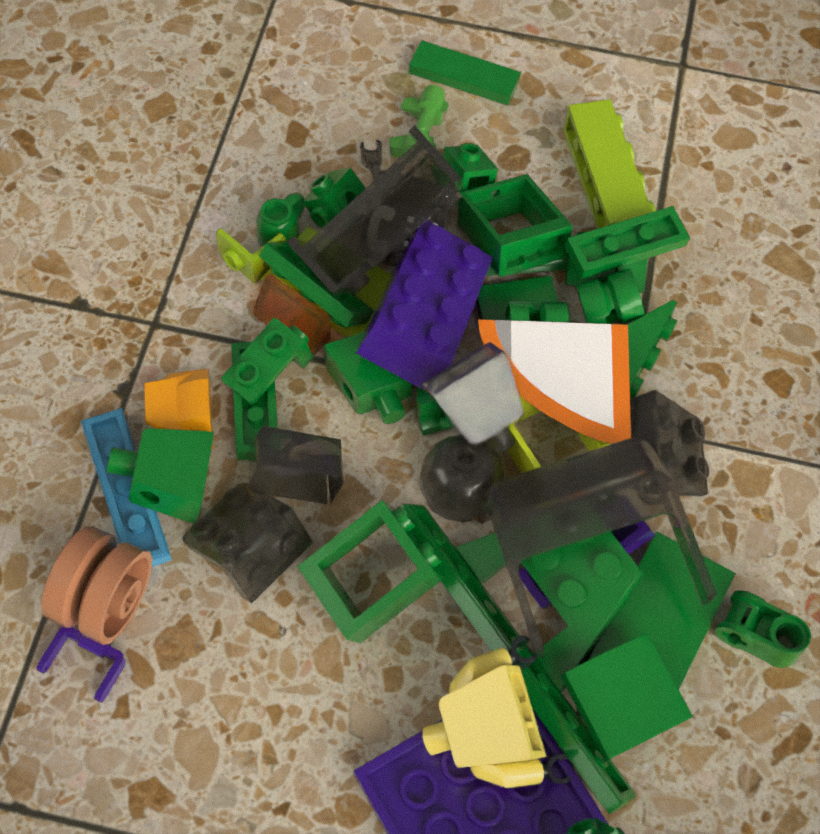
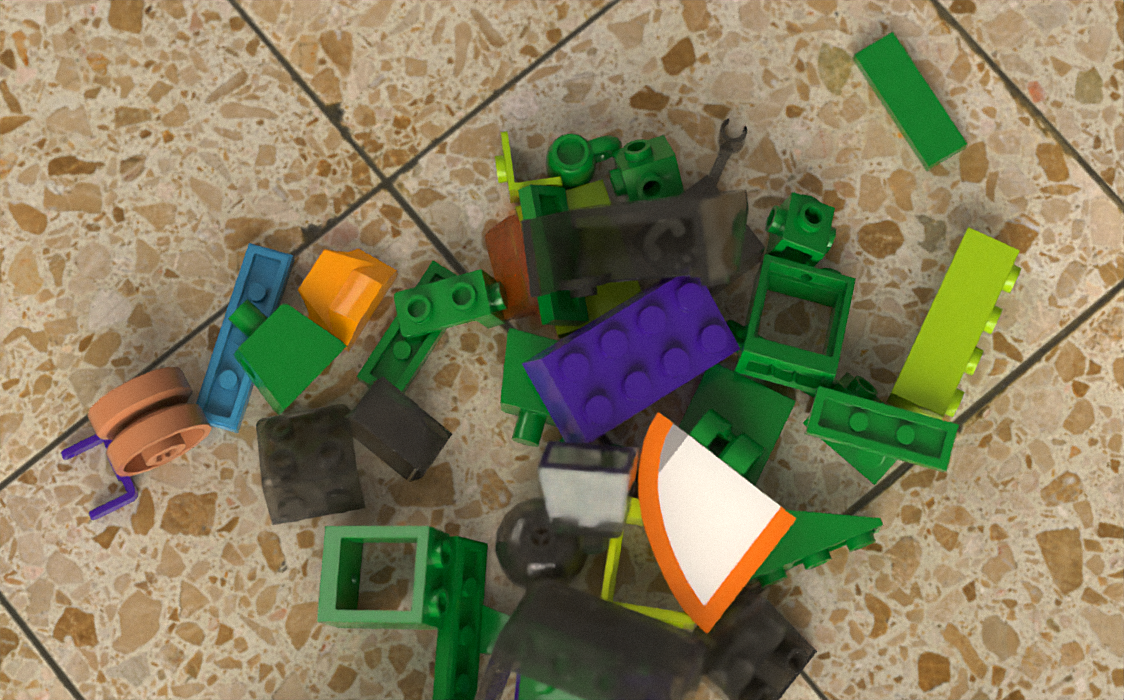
camera: 45 degrees right, 15 degrees up
(428, 110) = (832, 124): bright green piece -> none
(612, 299) = (826, 475): green wheel -> none

